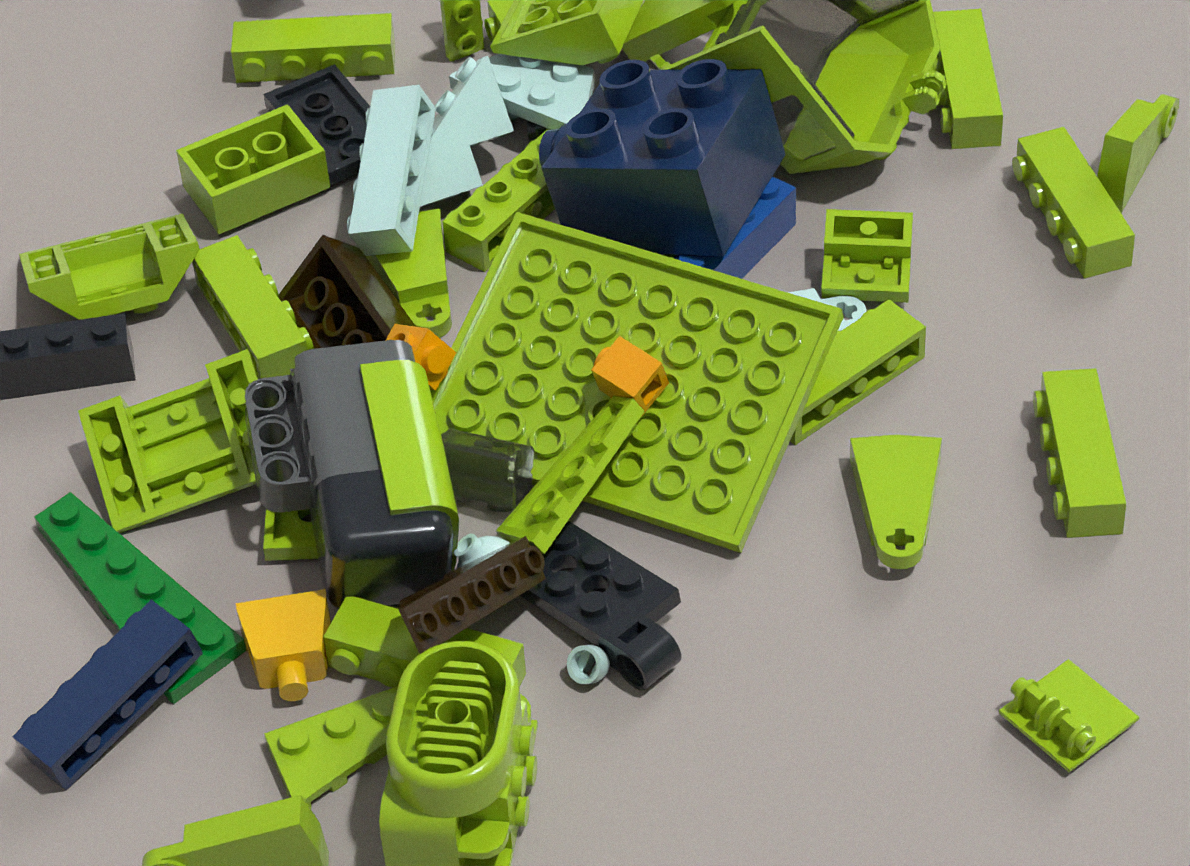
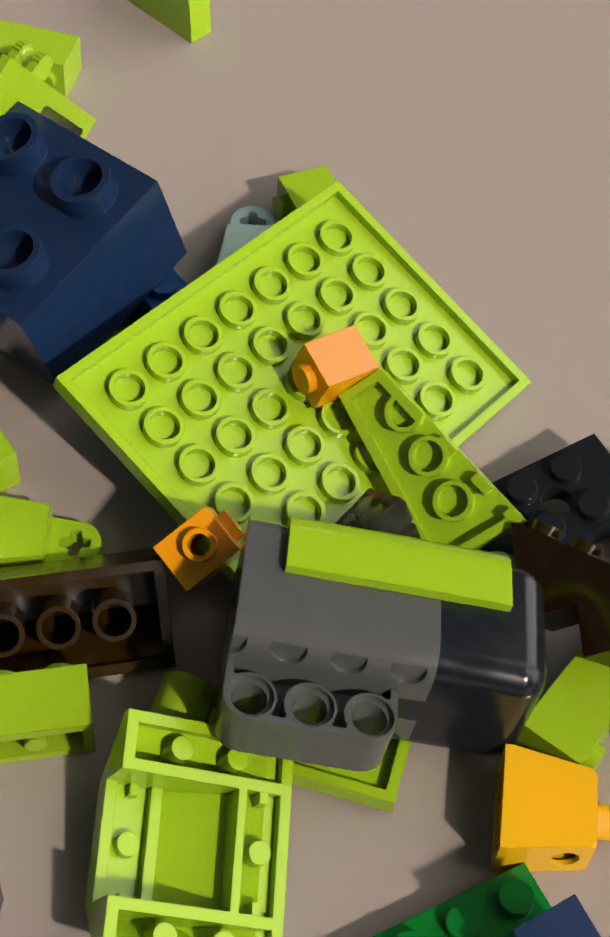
camera: 80 degrees left, 5 degrees up
(867, 255) = (202, 179): lime brick -> none
(896, 492) = (505, 261): lime piece -> none
(1074, 202) = (197, 42): lime brick -> none
(1081, 453) = (499, 134): lime brick -> none

